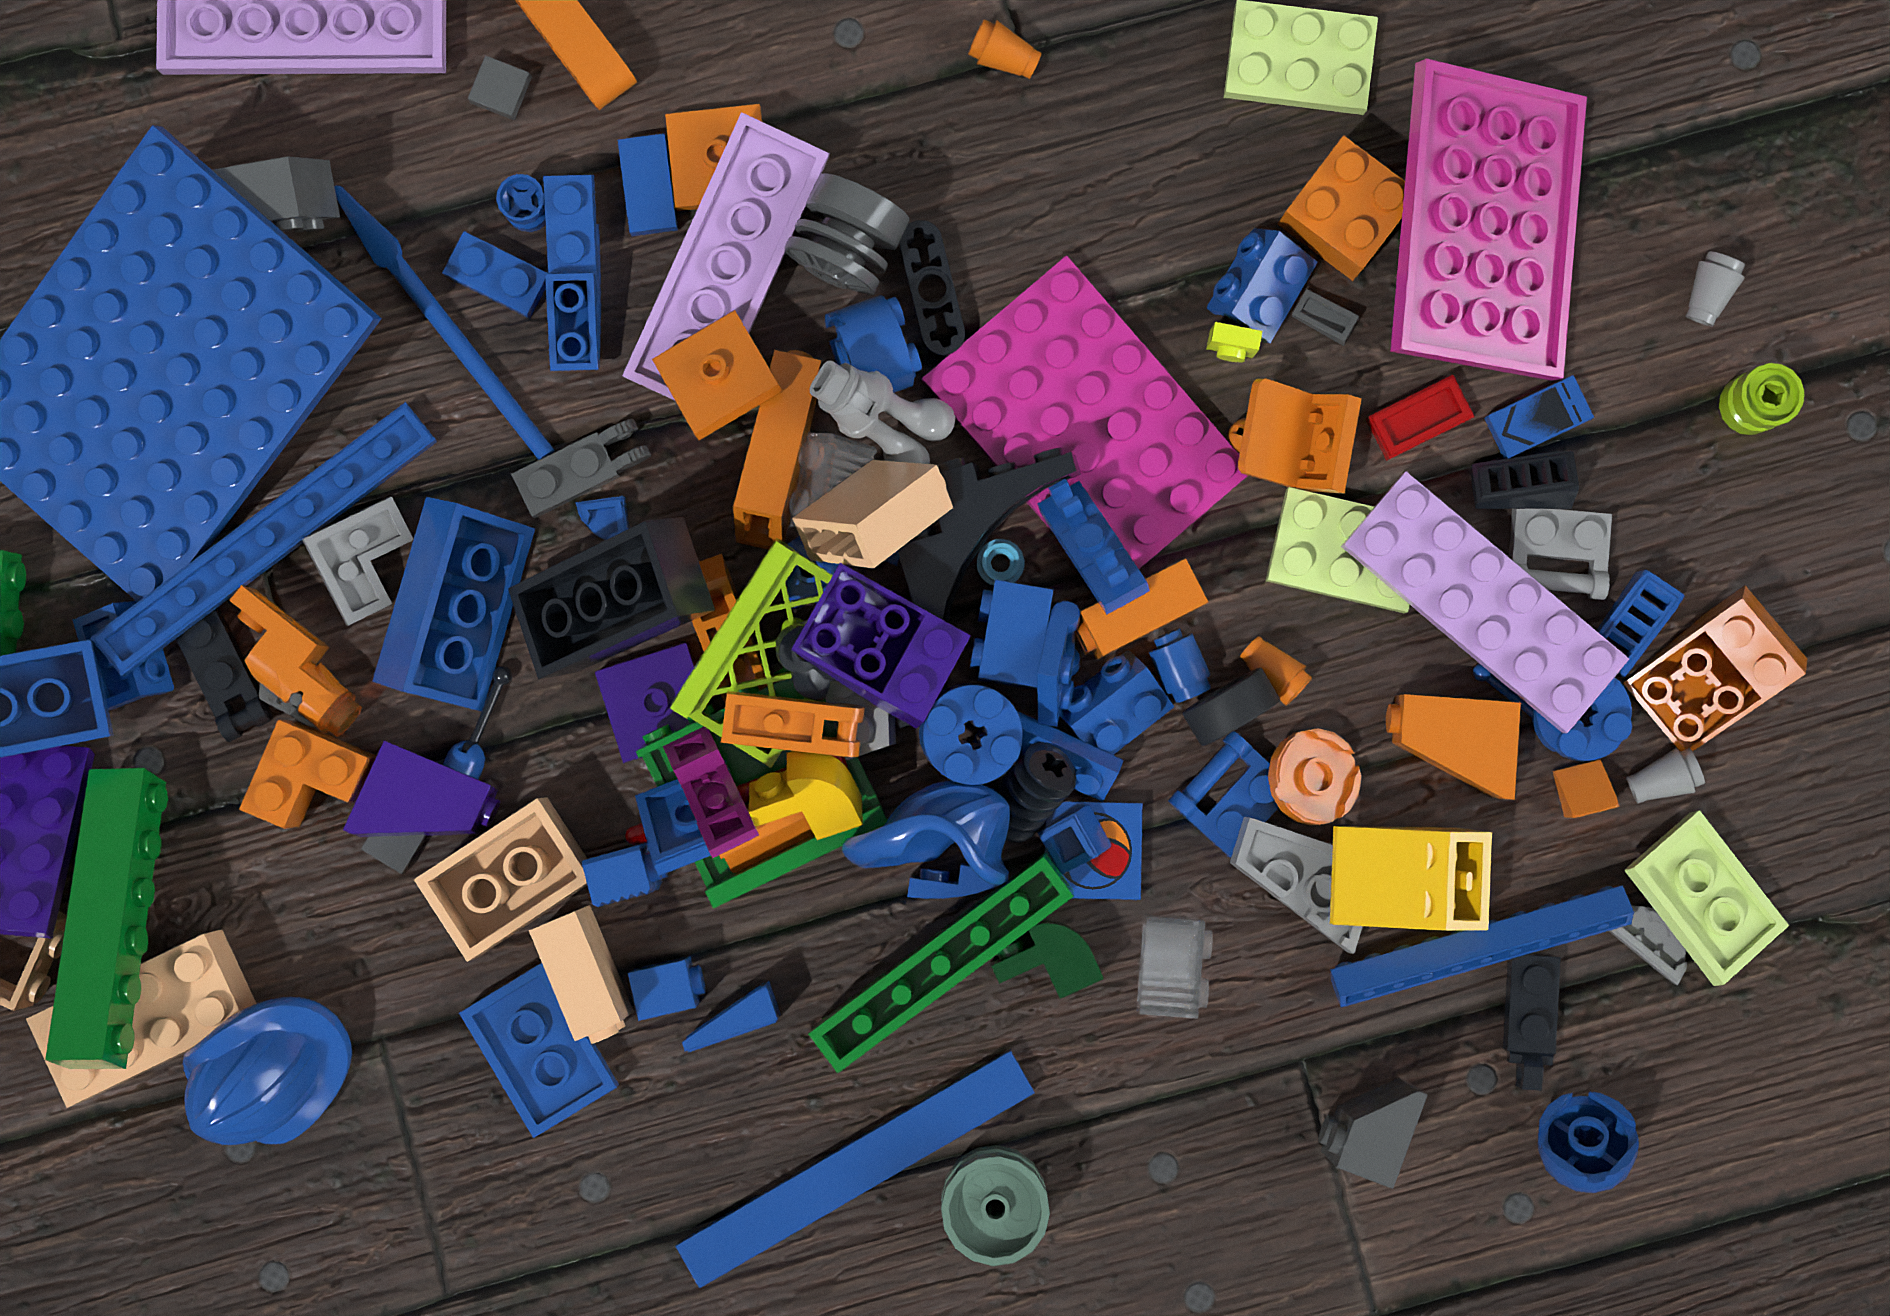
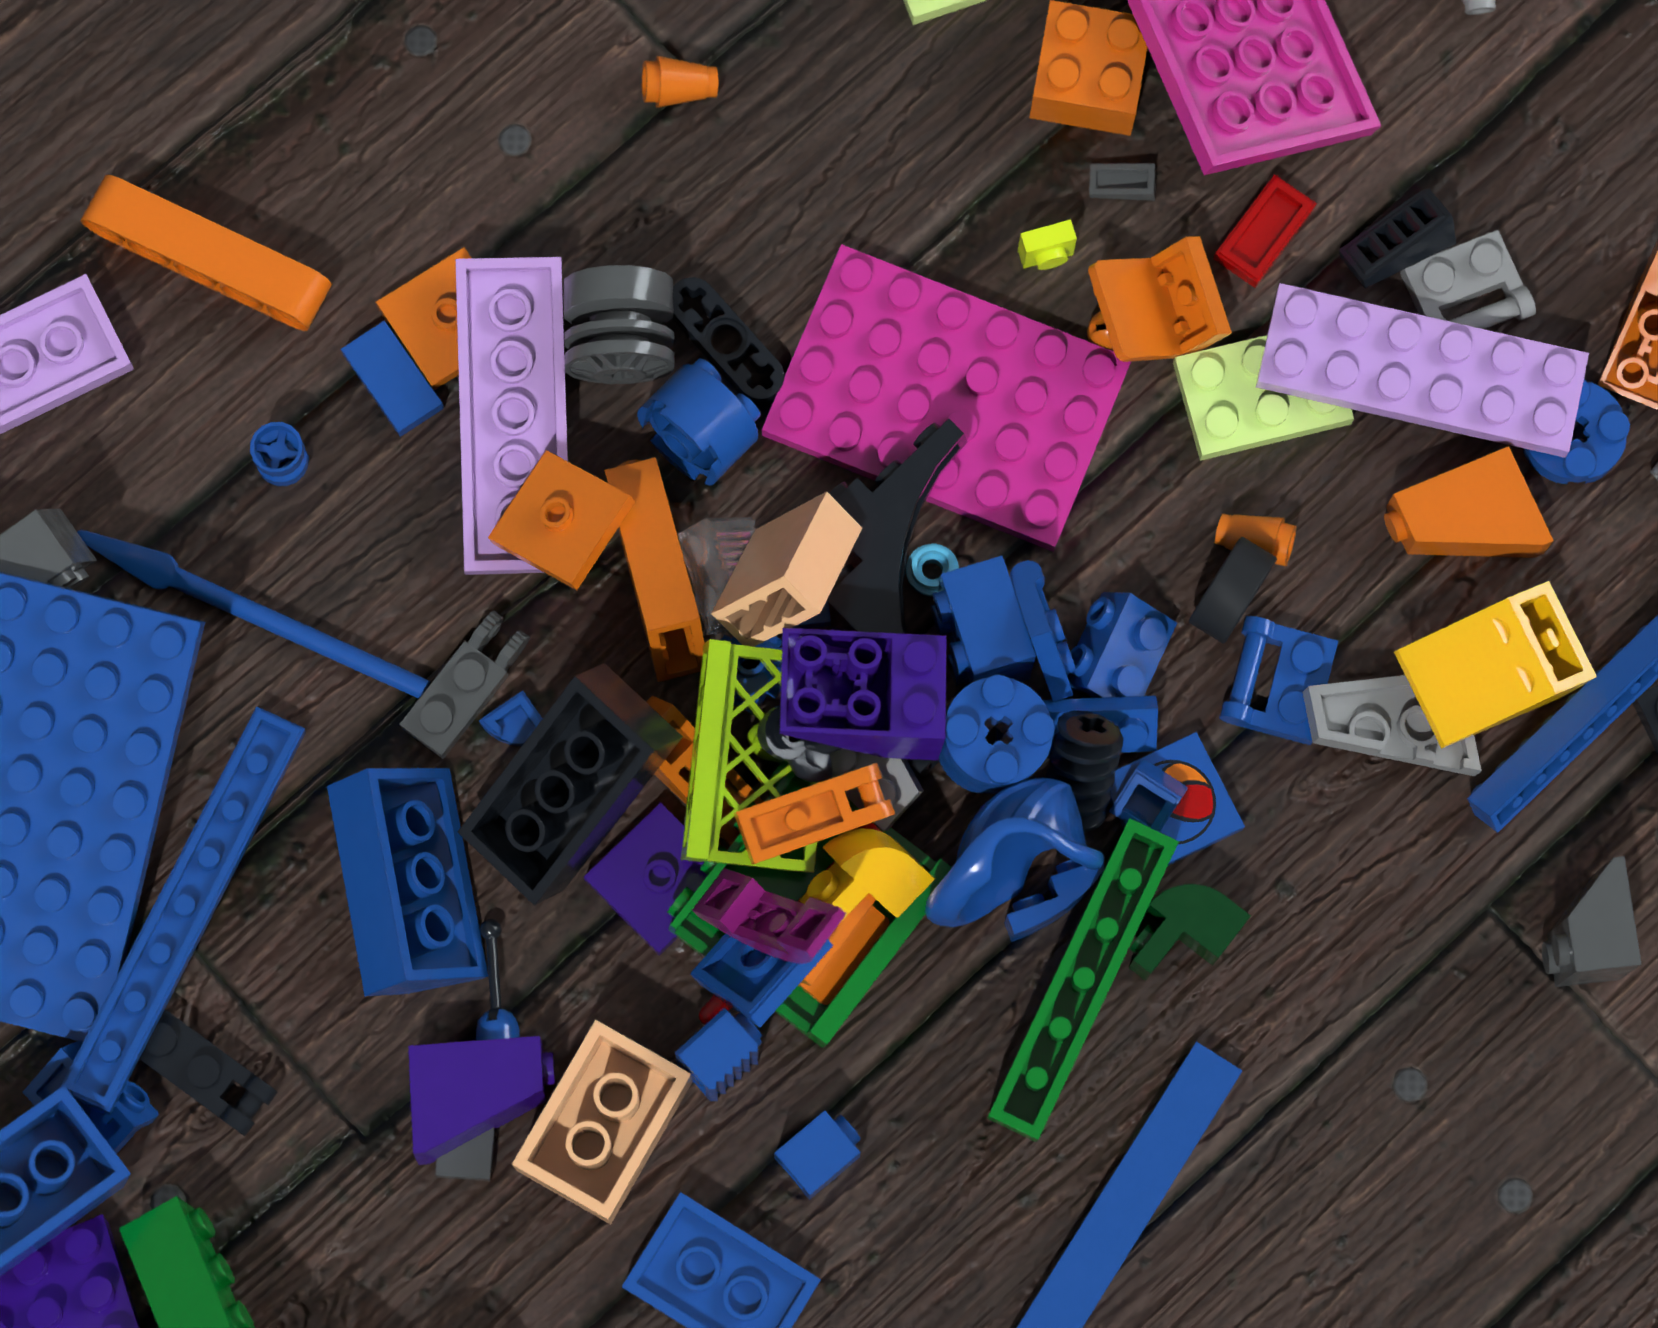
camera: 30 degrees left, 10 degrees down
(287, 667) = (270, 1030): orange plate -> none
(297, 765) = (332, 1112): orange brick -> none
(344, 556) = (273, 886): light grey plate -> none
(496, 274) = (284, 539): blue plate -> none
(499, 87) = (196, 357): dark grey tile -> none
(573, 273) = (362, 496): blue slope -> none
(583, 975) = (729, 1175): light nougat brick -> none
(745, 1015) = (914, 1138): blue slope -> none
(859, 396) = (716, 468): light grey piece -> none
(974, 1226) = (1239, 1220): sand green wheel -> none
(1092, 546) = (1016, 498): blue plate -> none
(1171, 596) = (1095, 540): orange brick -> none
(1172, 966) = (1311, 875): clear brick -> none
(1180, 665) = (1161, 579): blue brick -> none
(1262, 282) = (1044, 176): blue bracket -> none
(1314, 777) = (1349, 620): orange tile -> none
(1482, 674) = (1459, 442): blue hinge -> none
(1539, 417) = (1378, 174): blue tile -> none
(1584, 789) = (1616, 503): orange slope -> none
(1630, 596) = (1582, 278): blue slope -> none
(1761, 399) = (1578, 52): lime wheel -> none

